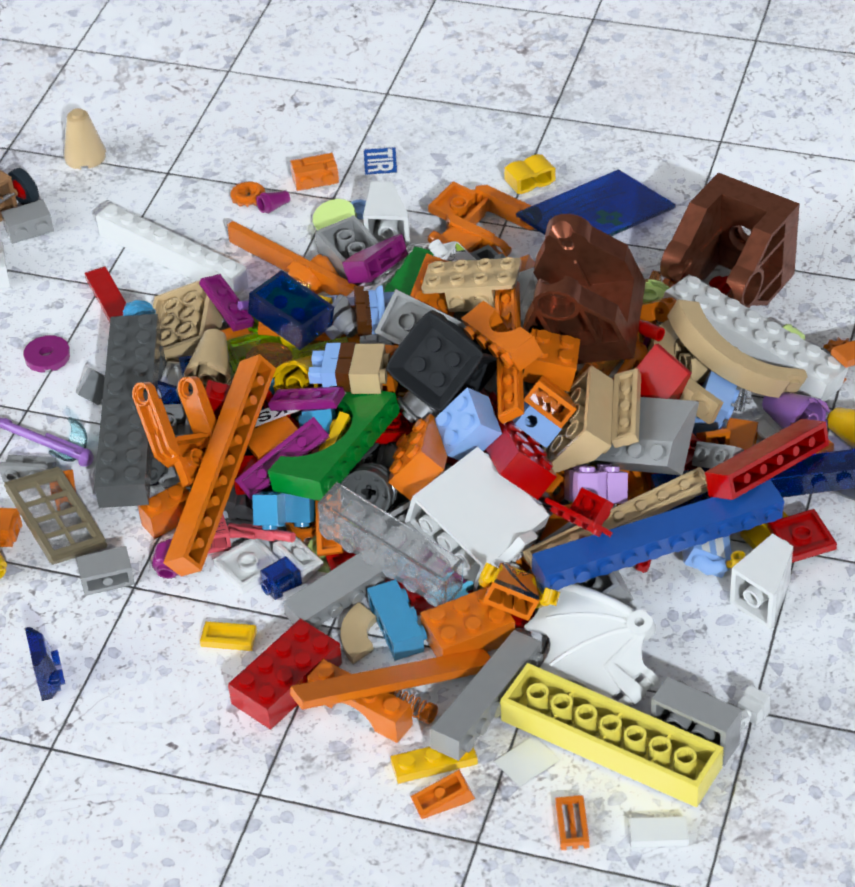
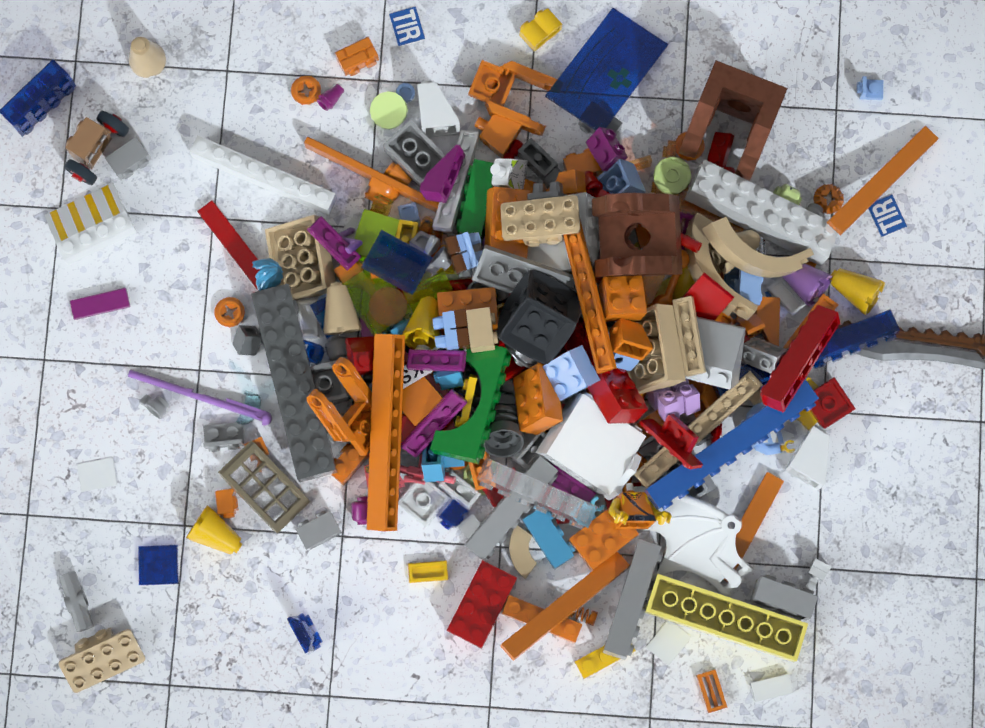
camera: 15 degrees left, 35 degrees up
(52, 344) = (184, 305): magenta tile -> none
(92, 357) = (232, 303): none -> orange gear
(443, 795) = (618, 686): orange slope -> none
(514, 347) = (566, 278): orange arch -> none
(657, 310) = (690, 203): orange leg -> none
(681, 637) = (756, 512): none -> orange tile

